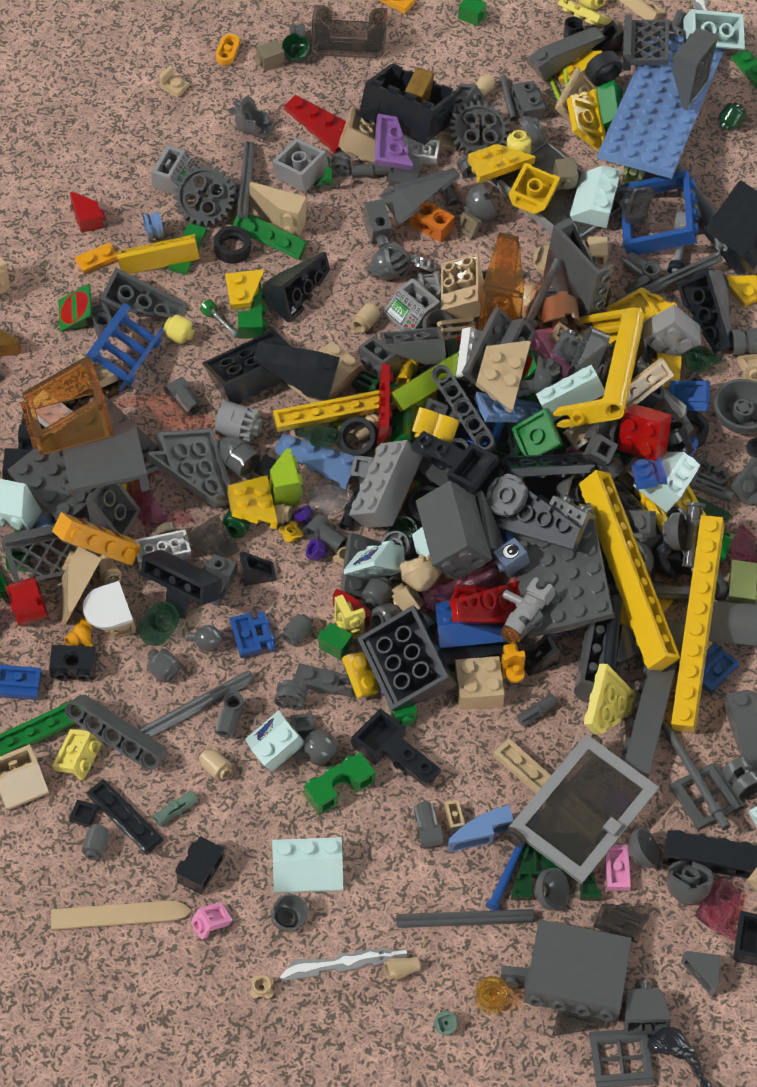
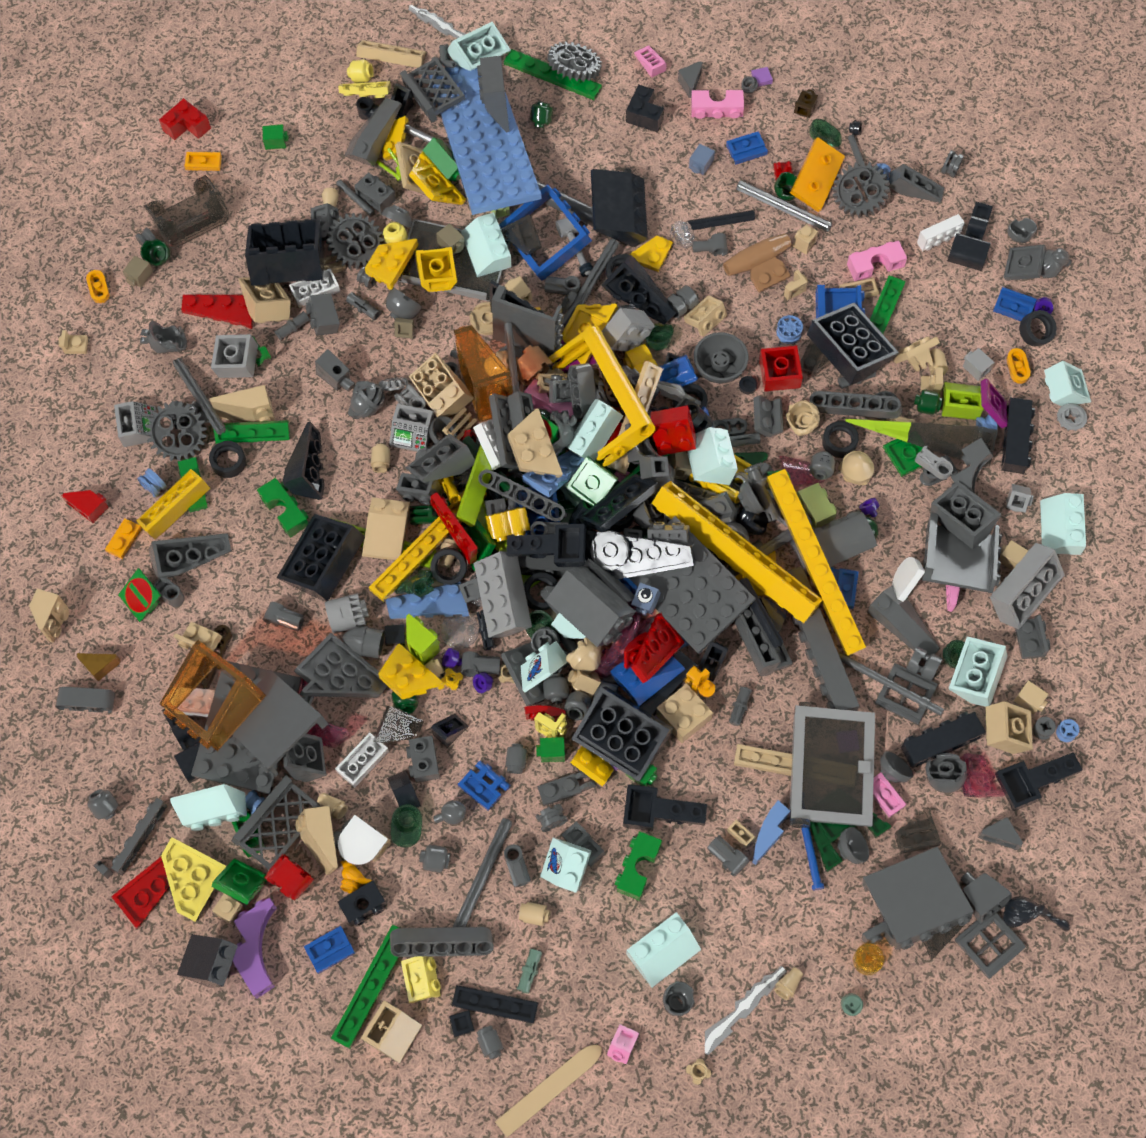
camera: 30 degrees left, 10 degrees up
(96, 538) = (311, 791): light orange brick -> none
(114, 331) = (190, 615): blue fence -> none
(166, 528) = (354, 741): dark tan tile -> none
(179, 329) = (238, 561): light yellow head -> none
(181, 577) = (401, 778): black brick -> none
(200, 865) = (584, 1006): black brick -> none
(209, 309) = (250, 527): hinge -> none
(243, 287) = (267, 494): yellow wing -> none
(304, 369) = (371, 538): black wedge -> none
(320, 747) = (604, 845): dark grey hair -> none
(341, 164) = (264, 335): dark grey wheel -> none
(389, 144) = (298, 298): medium lavender wing -> none
(406, 197) = (344, 331): dark grey wedge -> none
(421, 84) = (287, 231): pearl gold slope -> none
(433, 221) = (371, 346): orange brick -> none
(465, 918) = (805, 911): dark grey axle -> none
(527, 612) = (689, 637): light grey piece -> none
(604, 59) = (418, 130): black tyre -> none
(608, 701) = (794, 667): light yellow plate -> none
(648, 473) = (700, 463): blue plate -> none

